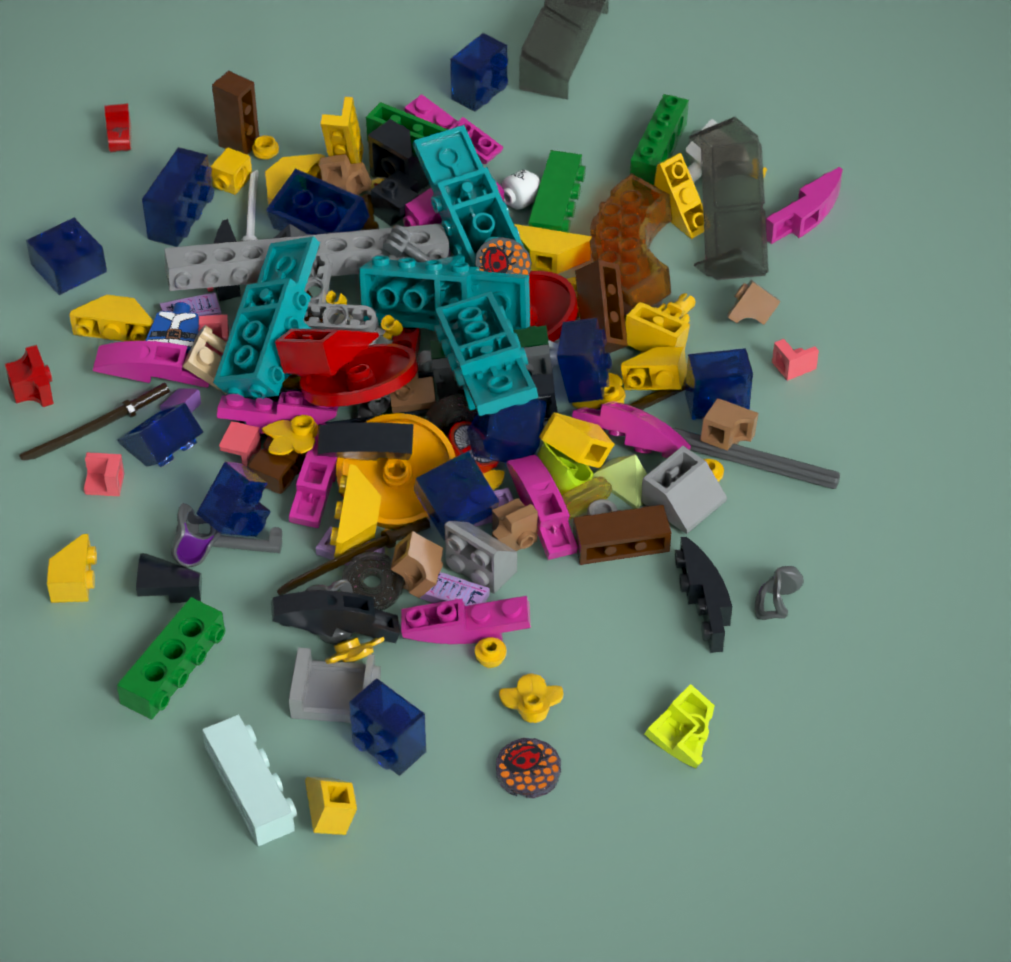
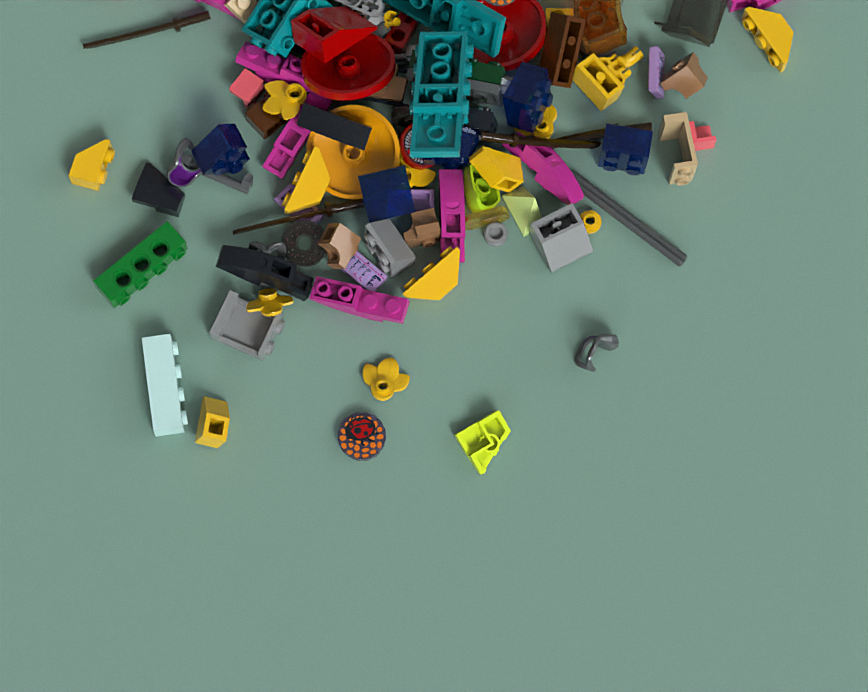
camera: 15 degrees right, 25 degrees up
(104, 474) = (139, 83): coral panel -> none
(162, 435) = (191, 60): clear blue slope -> none
(188, 395) = (217, 30): medium lavender slope -> none
(387, 727) = (270, 377): clear blue brick -> none
(490, 658) = (369, 338): yellow plate -> none
(553, 569) = (437, 278): none -> yellow slope
(586, 401) = (514, 139): none -> dark brown sword
(622, 534) = (501, 260): reddish brown brick -> none
(655, 369) = (585, 116): yellow slope -> none
(706, 590) = (544, 325): black slope -> none
(718, 311) = (656, 72): none -> lavender tile
(728, 425) = (616, 189): medium nougat brick -> none
(775, 351) = (677, 127): none -> tan panel
(827, 245) = (770, 34): none -> yellow slope

